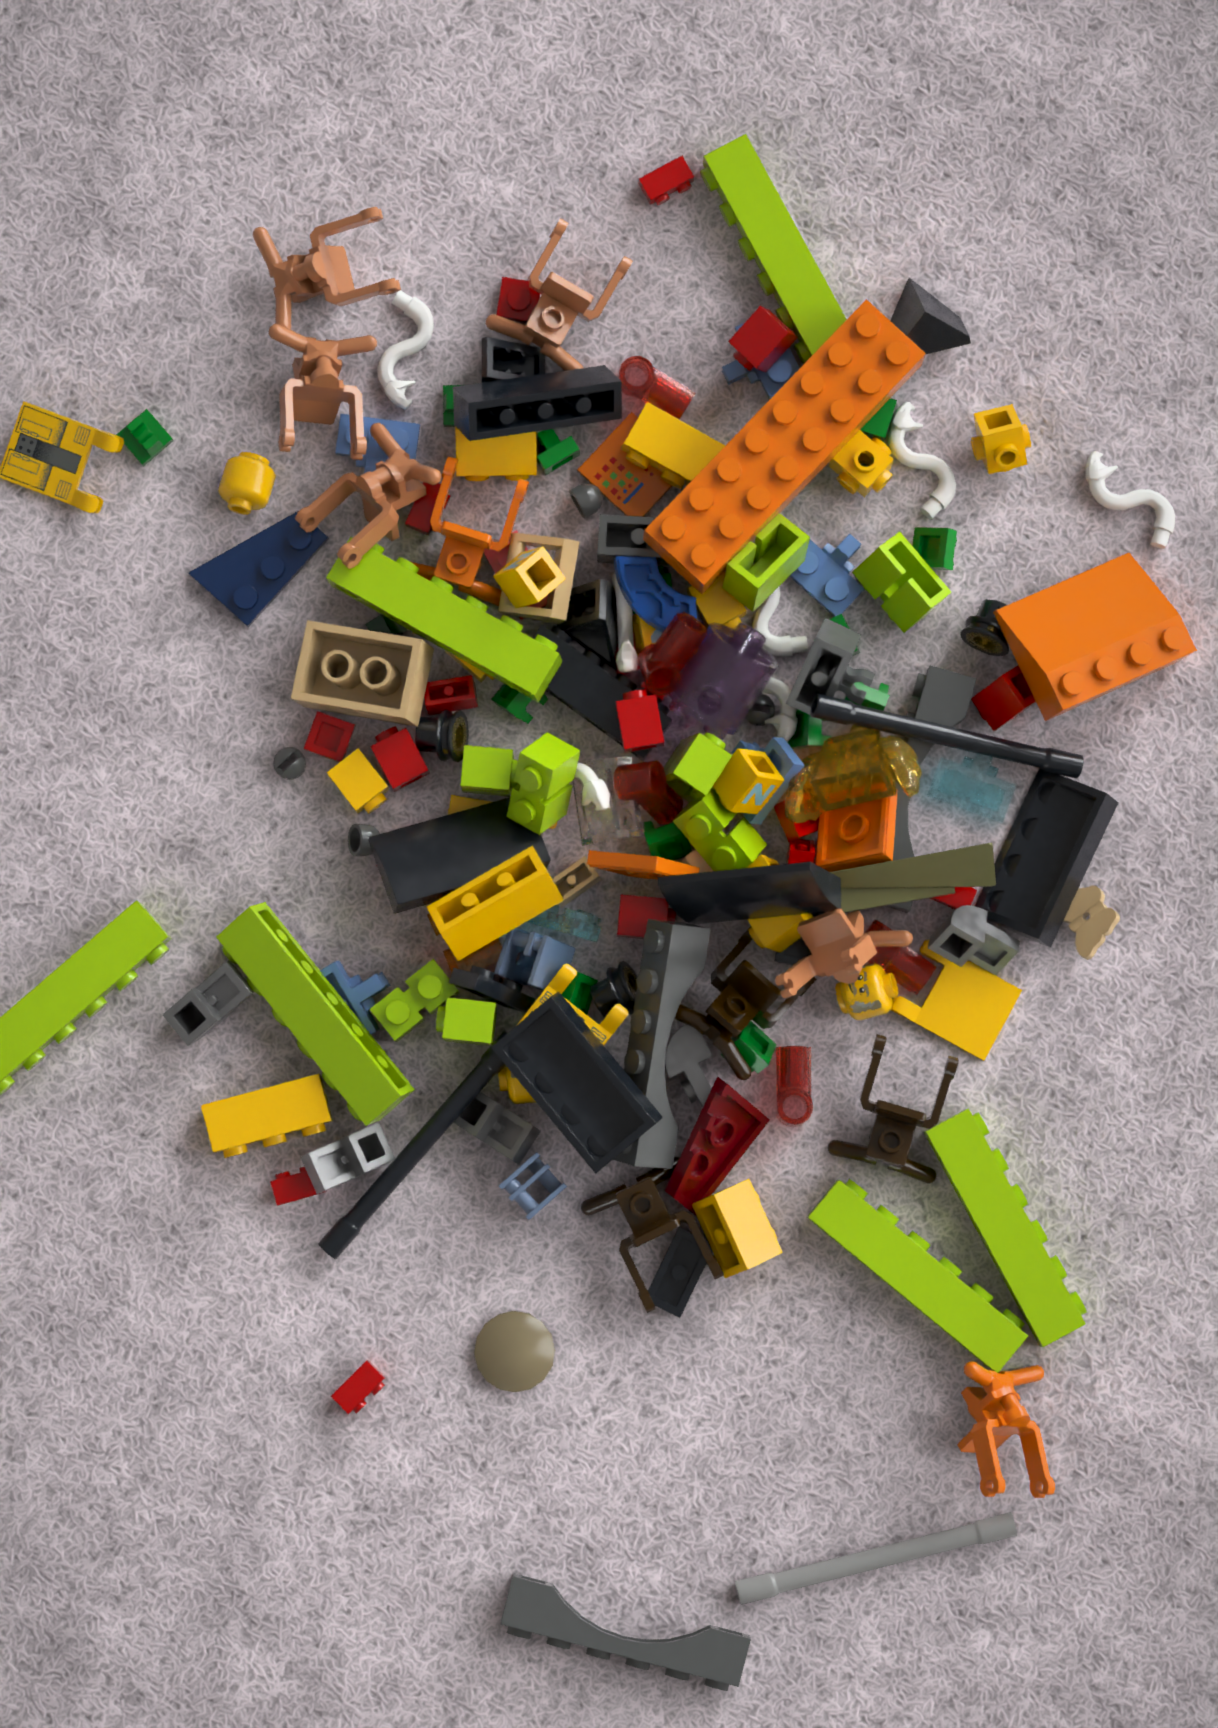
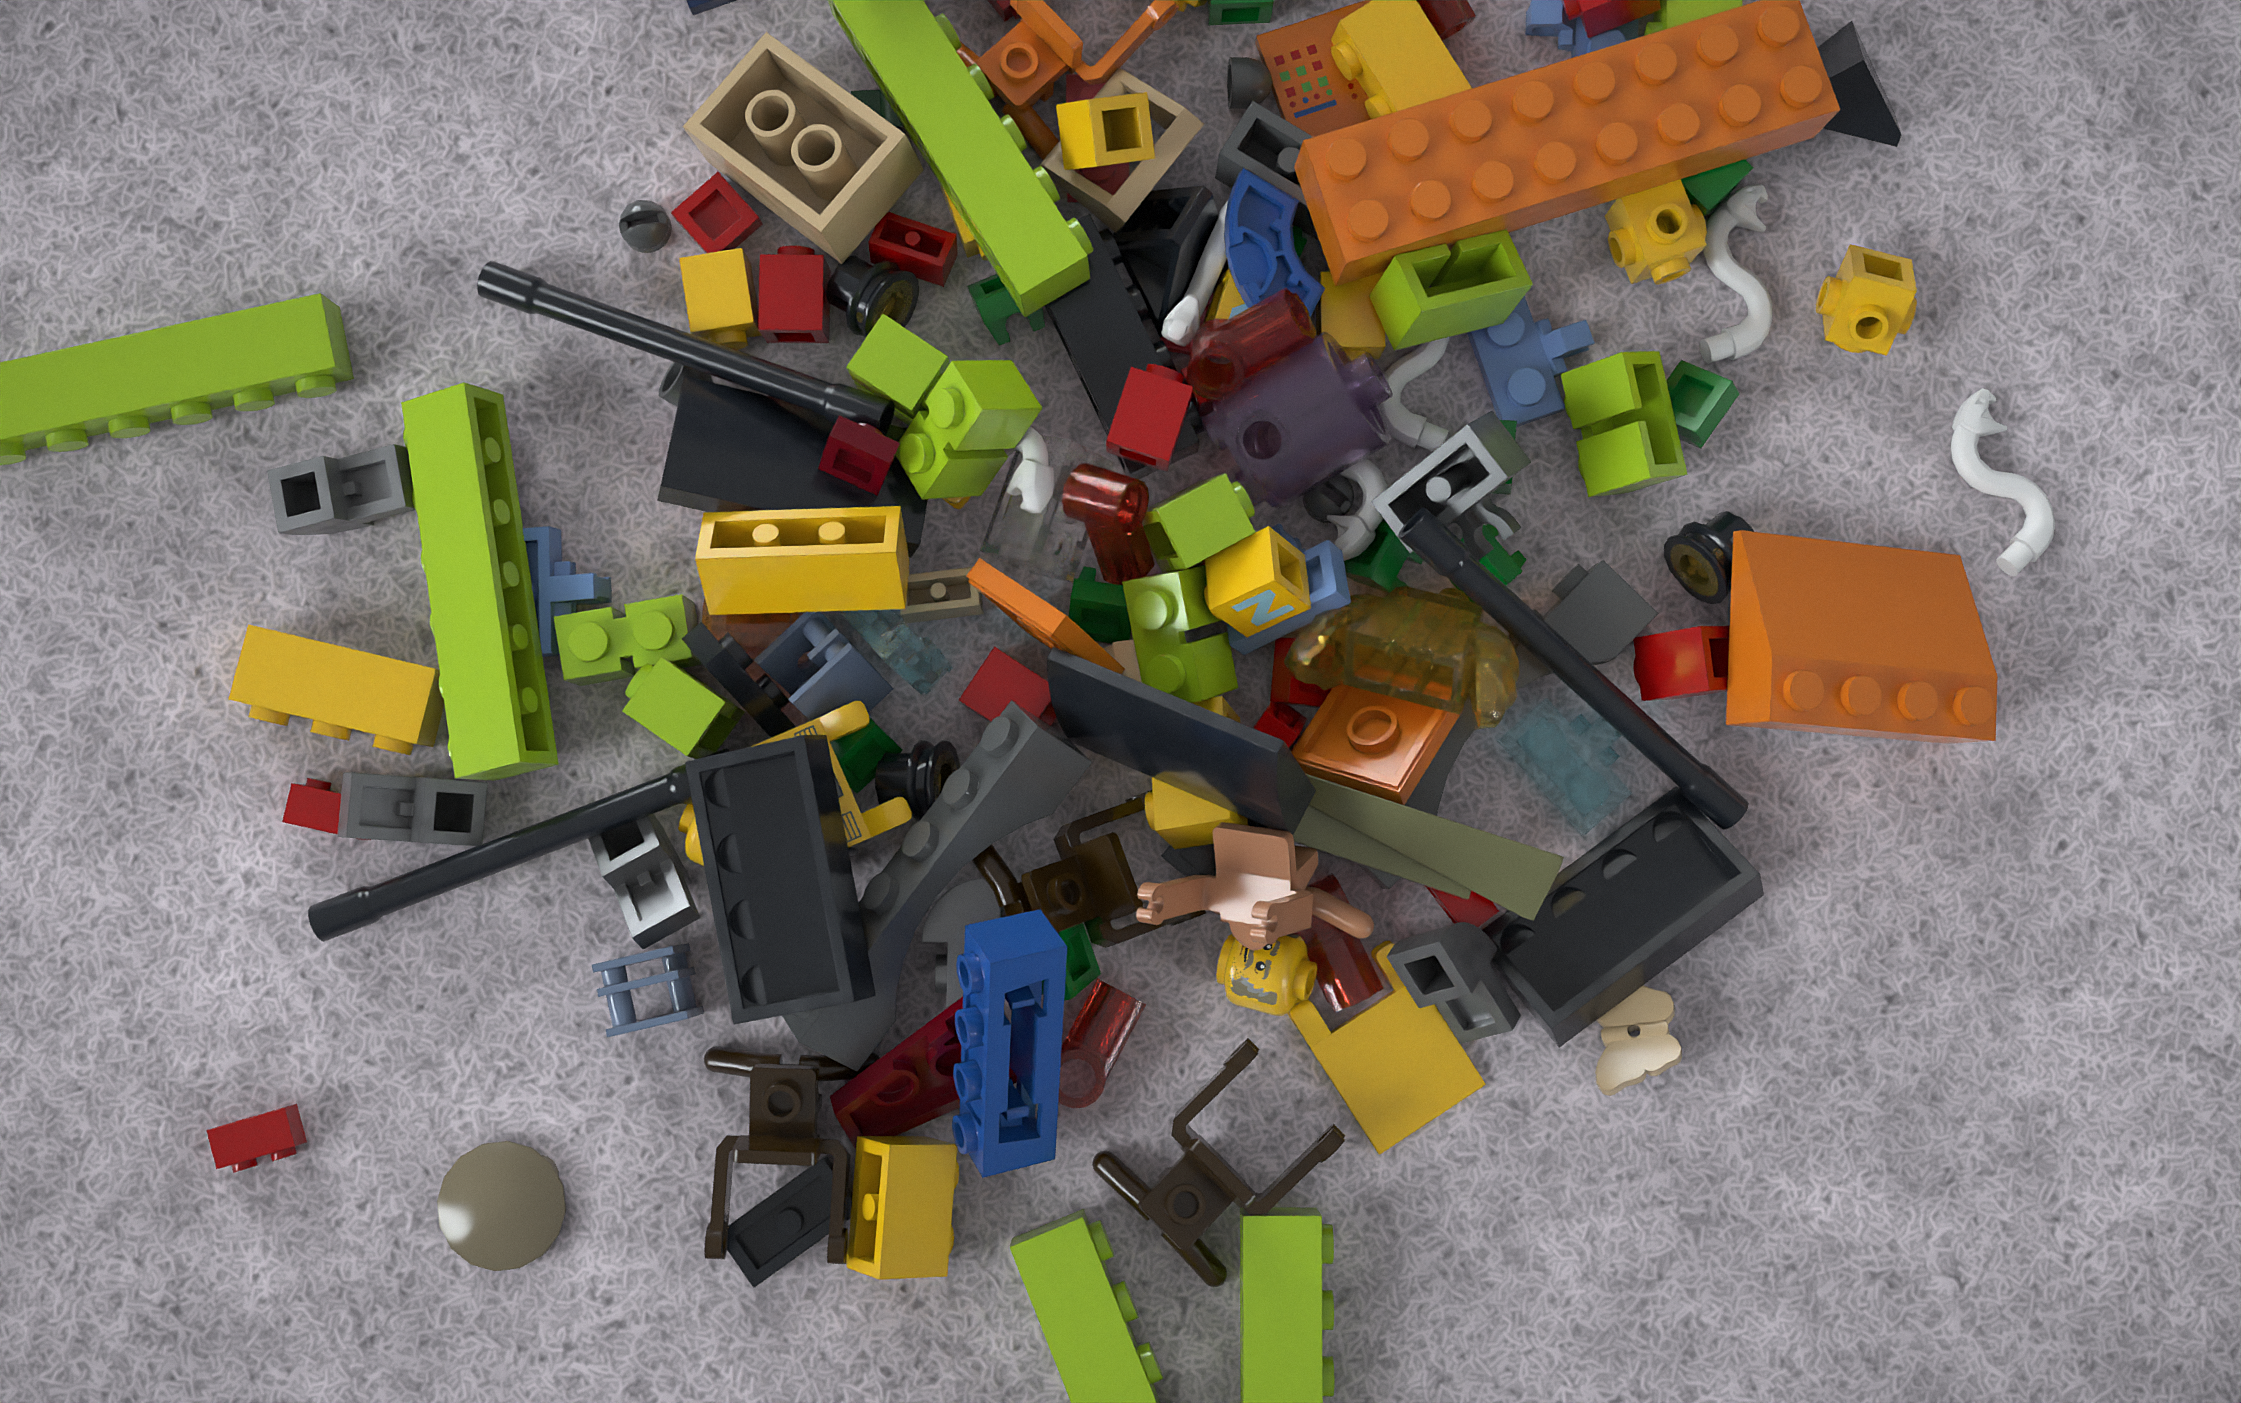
camera: 30 degrees right, 0 degrees up
(462, 807) = (536, 296): none -> black piece
(493, 829) = (858, 454): none -> dark red plate
(747, 1101) = (995, 1119): none -> blue brick

